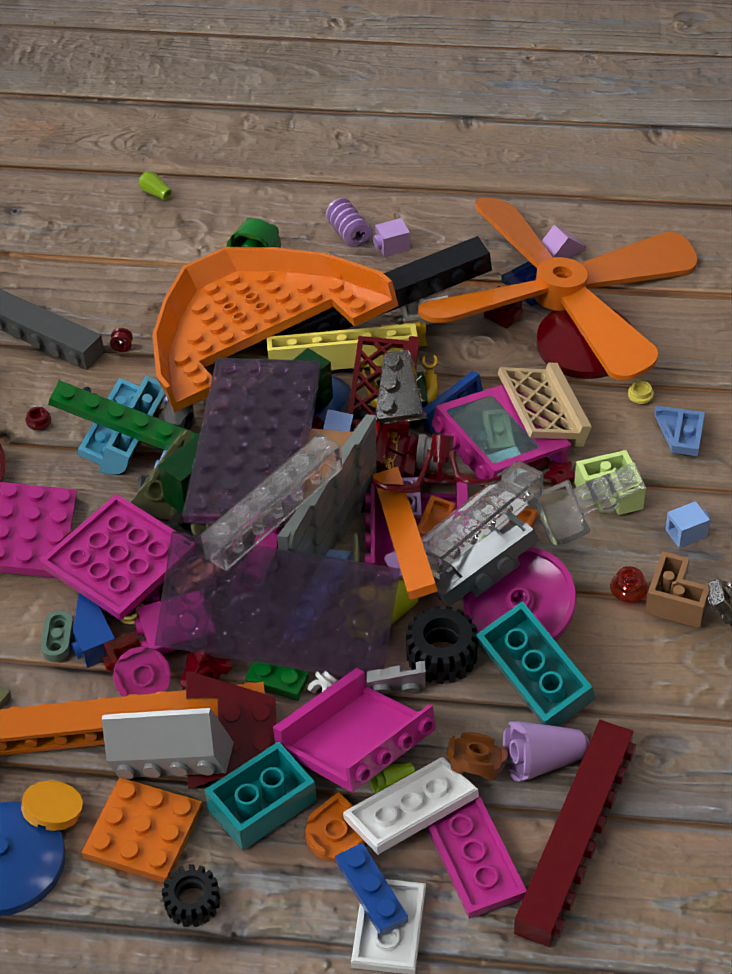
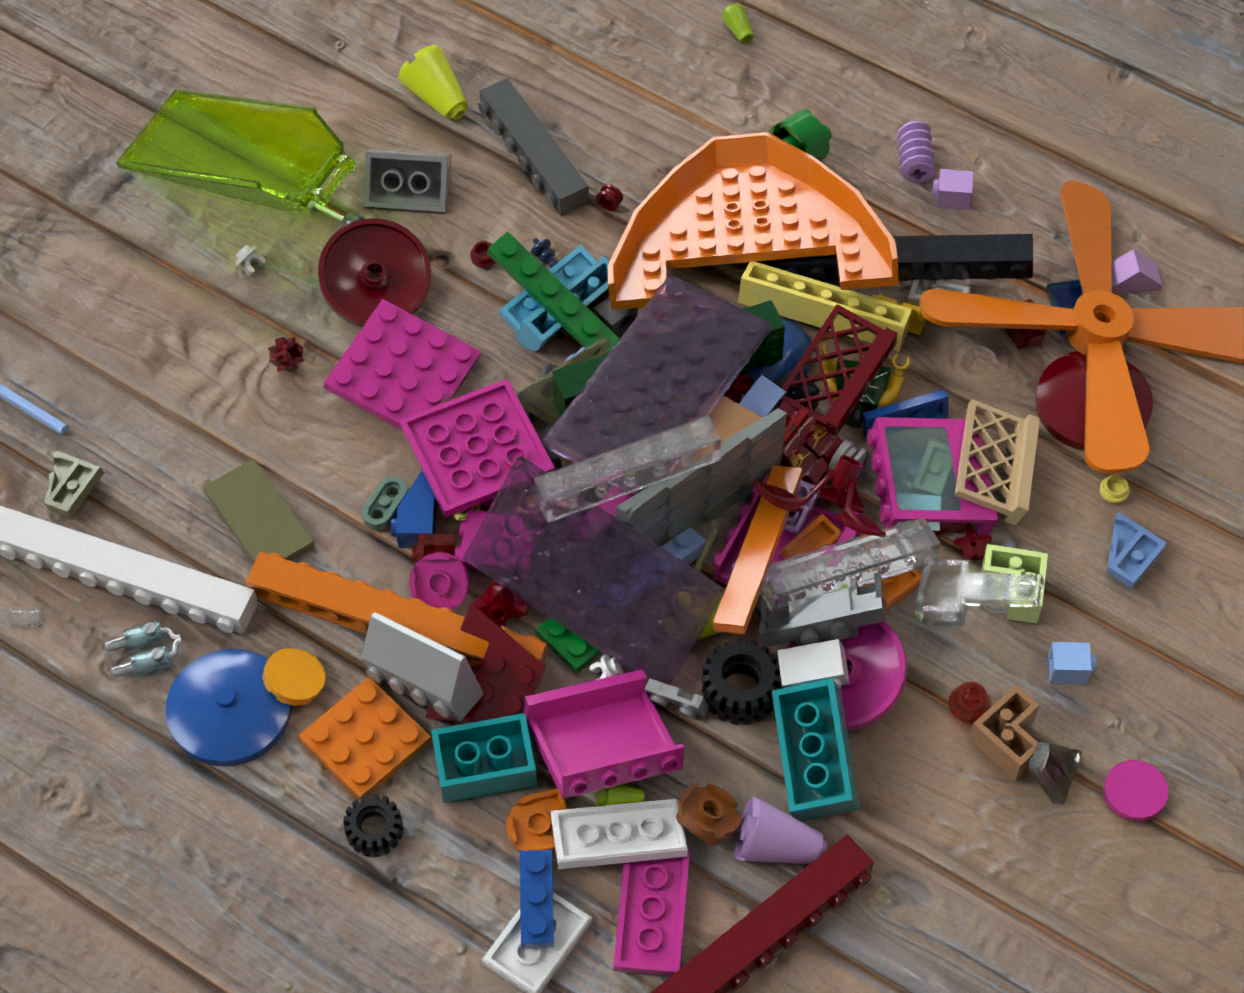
camera: 25 degrees right, 10 degrees up
(398, 391) = (843, 385): clear smoke wing -> none
(494, 601) = (813, 663): none -> white brick

